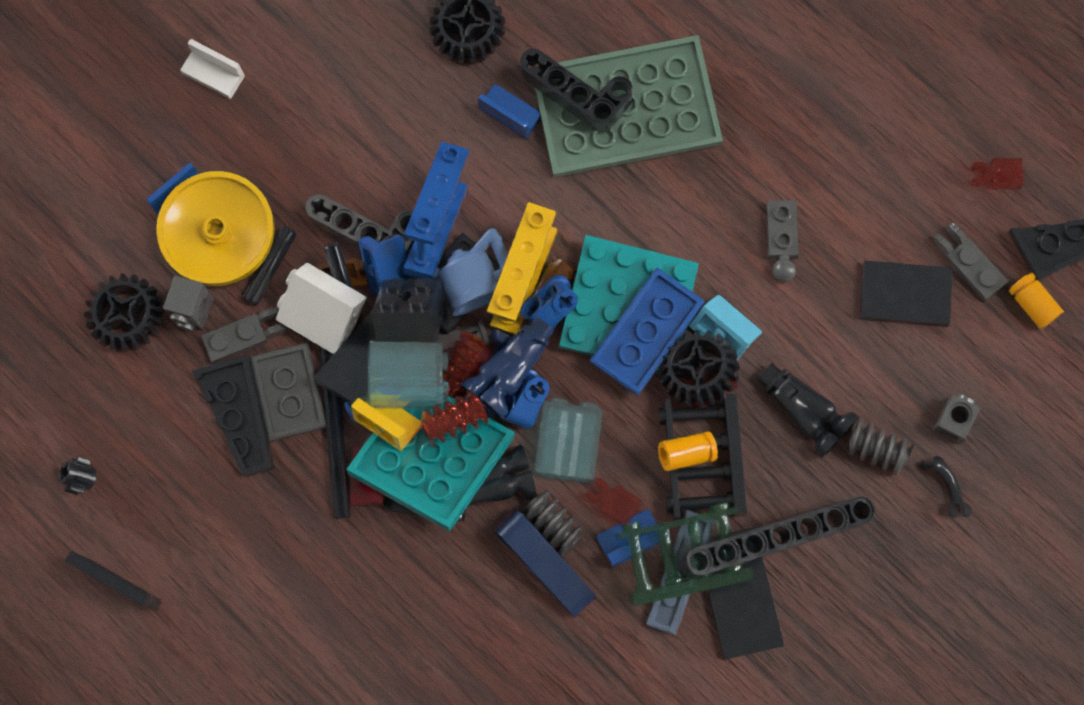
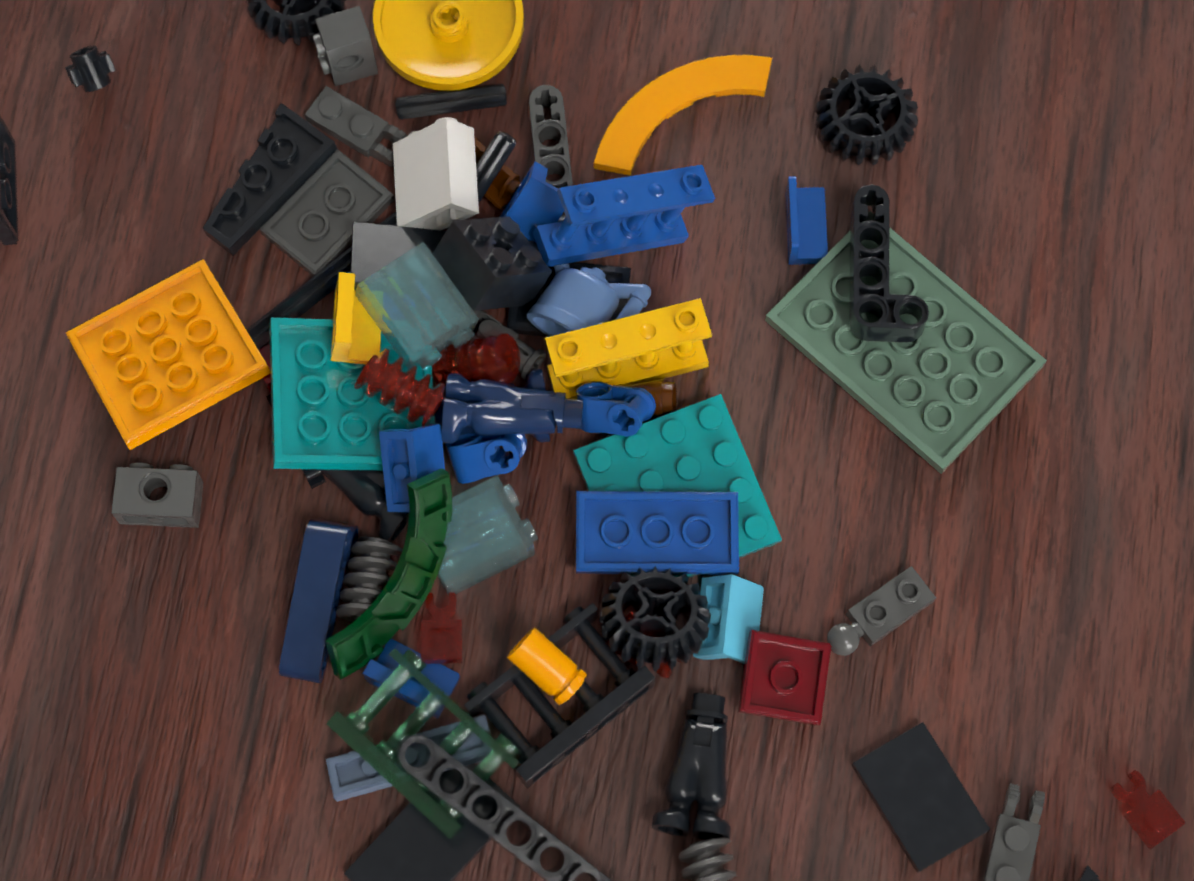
camera: 50 degrees right, 5 degrees down
(314, 551) = (167, 354): none -> light orange tile
(365, 131) = (672, 94): none -> light orange tile
(421, 610) = (176, 509): none -> dark grey brick
(510, 447) = (407, 457): none -> blue panel
(578, 499) = (410, 583): none -> dark green tile
(784, 320) = (784, 678): none -> dark red plate

